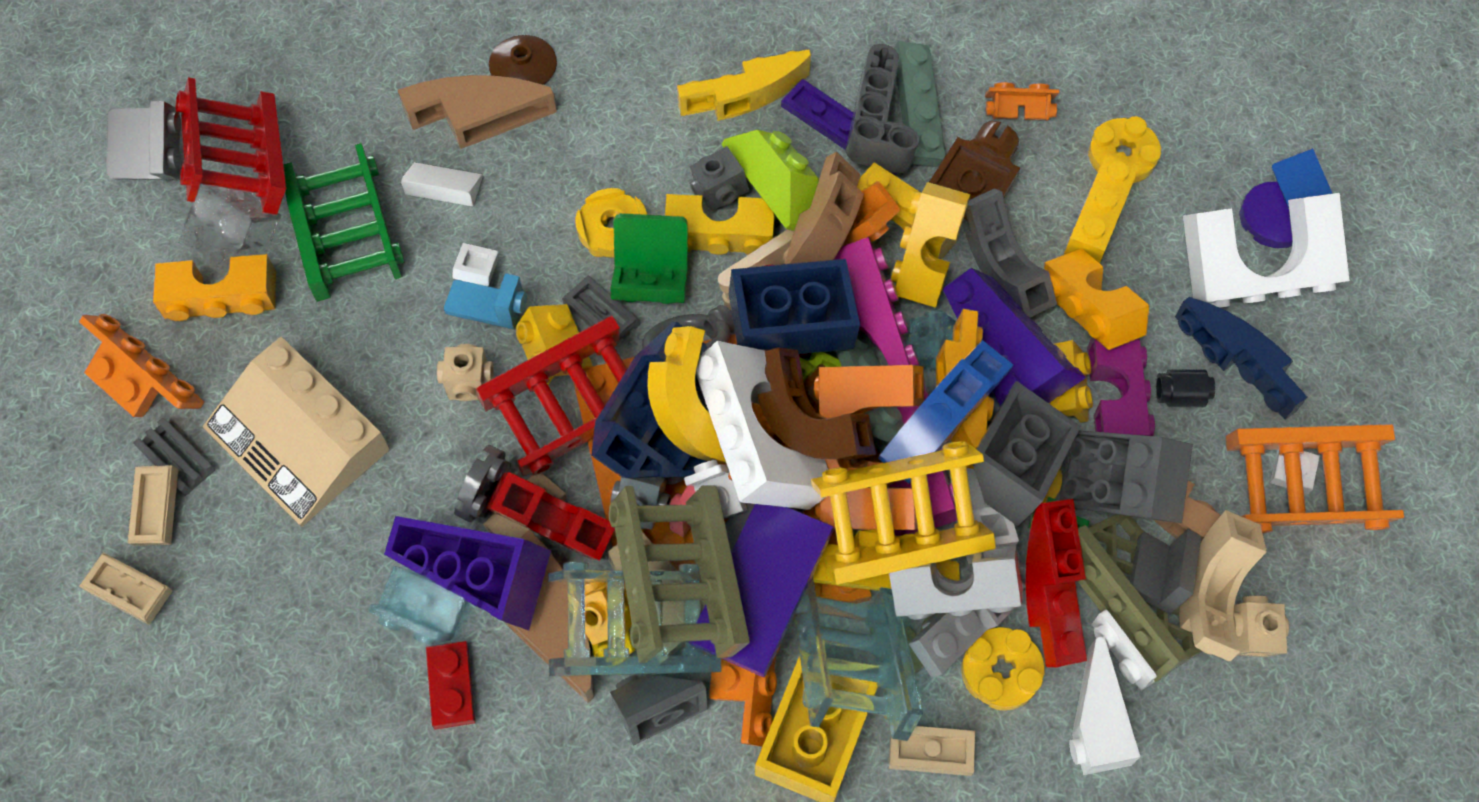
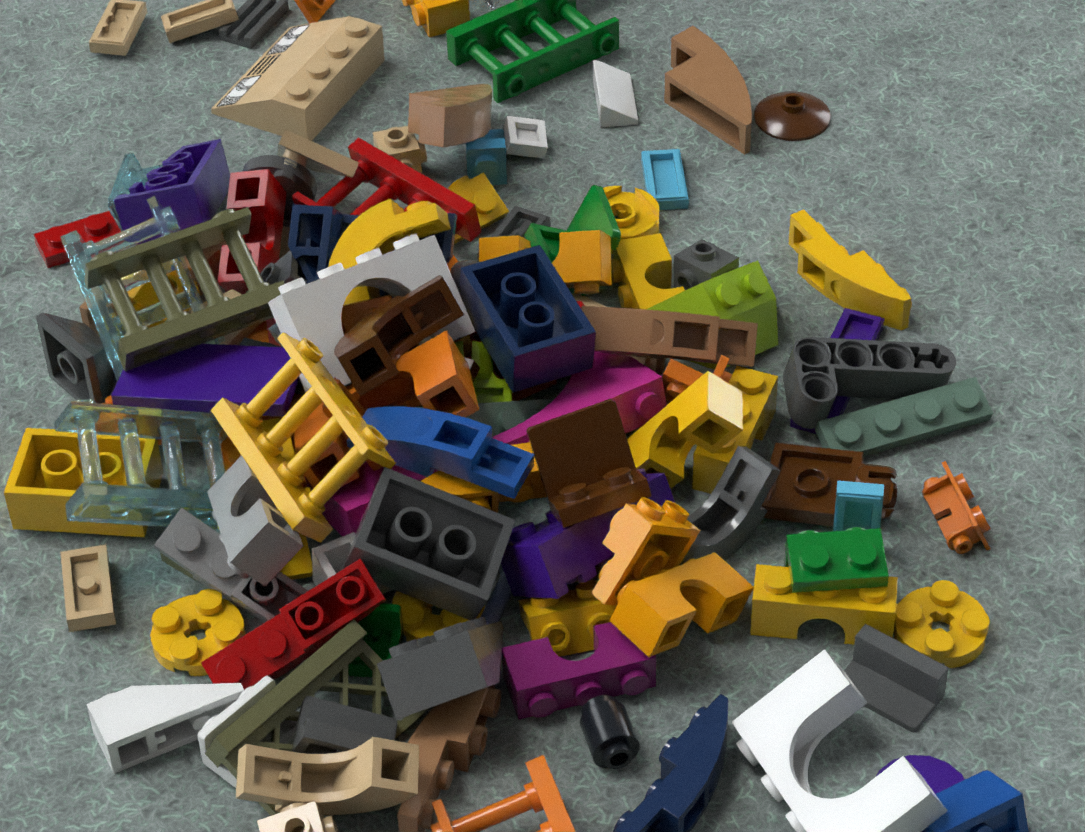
camera: 75 degrees right, 20 degrees down
(457, 444) = (314, 156): none -> tan wing
(463, 302) = (450, 114): none -> medium nougat slope
(568, 176) = (665, 178): none -> medium azure tile
(705, 261) = (581, 259): none -> light orange arch
(1001, 309) = (586, 463): none -> reddish brown bracket
(1036, 160) = (858, 505): none -> medium azure tile
(1064, 302) = (643, 543): none -> light orange plate
(1088, 186) = (836, 560): none -> green bracket
(1171, 196) = (896, 678): none -> dark grey panel

